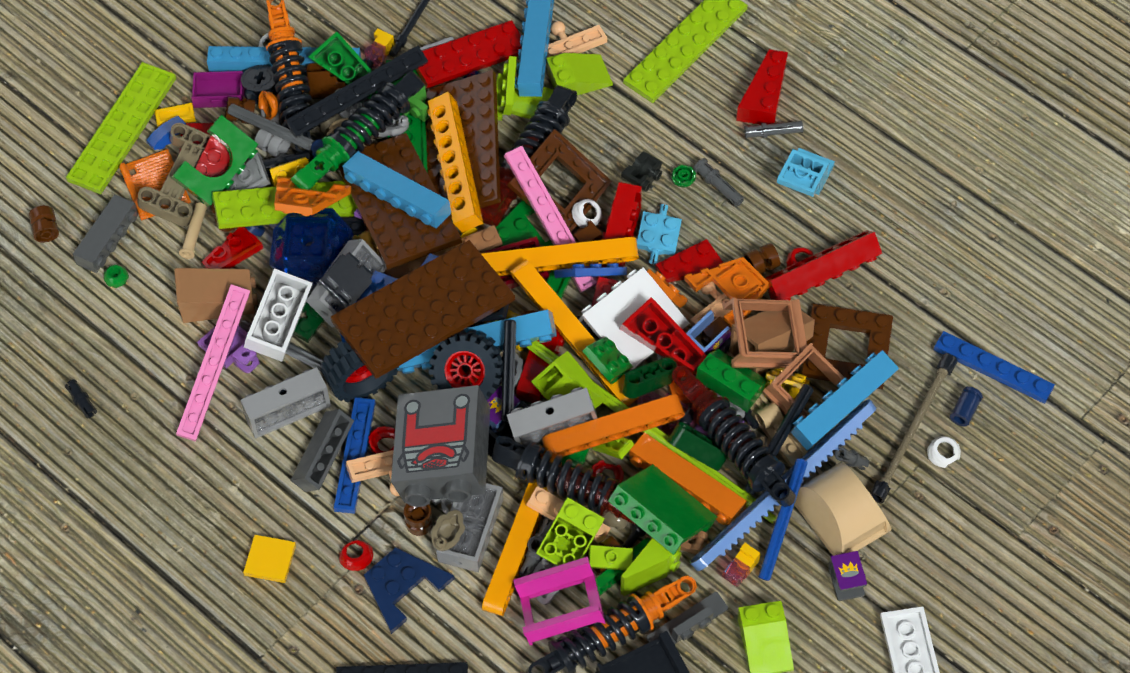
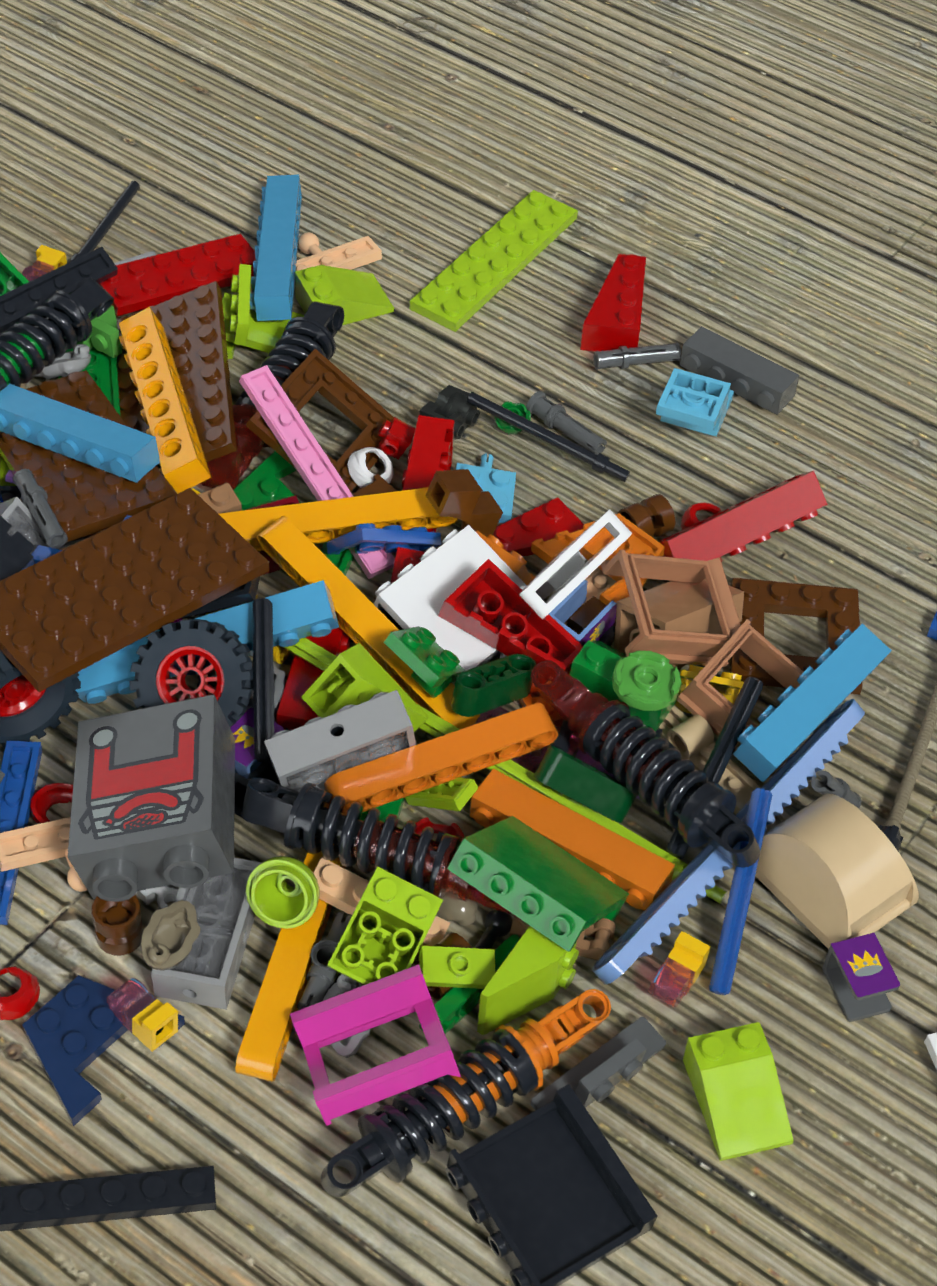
camera: 10 degrees left, 10 degrees down
(373, 238) = (35, 499): none -> dark grey pin
(431, 573) = (143, 1013): none -> leg
(513, 507) = (276, 900): none -> lime piece
(604, 191) = (395, 437): none -> red plate
(639, 249) = (460, 496): none -> reddish brown arch
(703, 304) = (568, 567): none -> white piece
(738, 213) = (599, 462): none -> black bar
(740, 384) = (646, 681): none -> bright green tile
(841, 144) = (748, 372): none -> dark grey brick

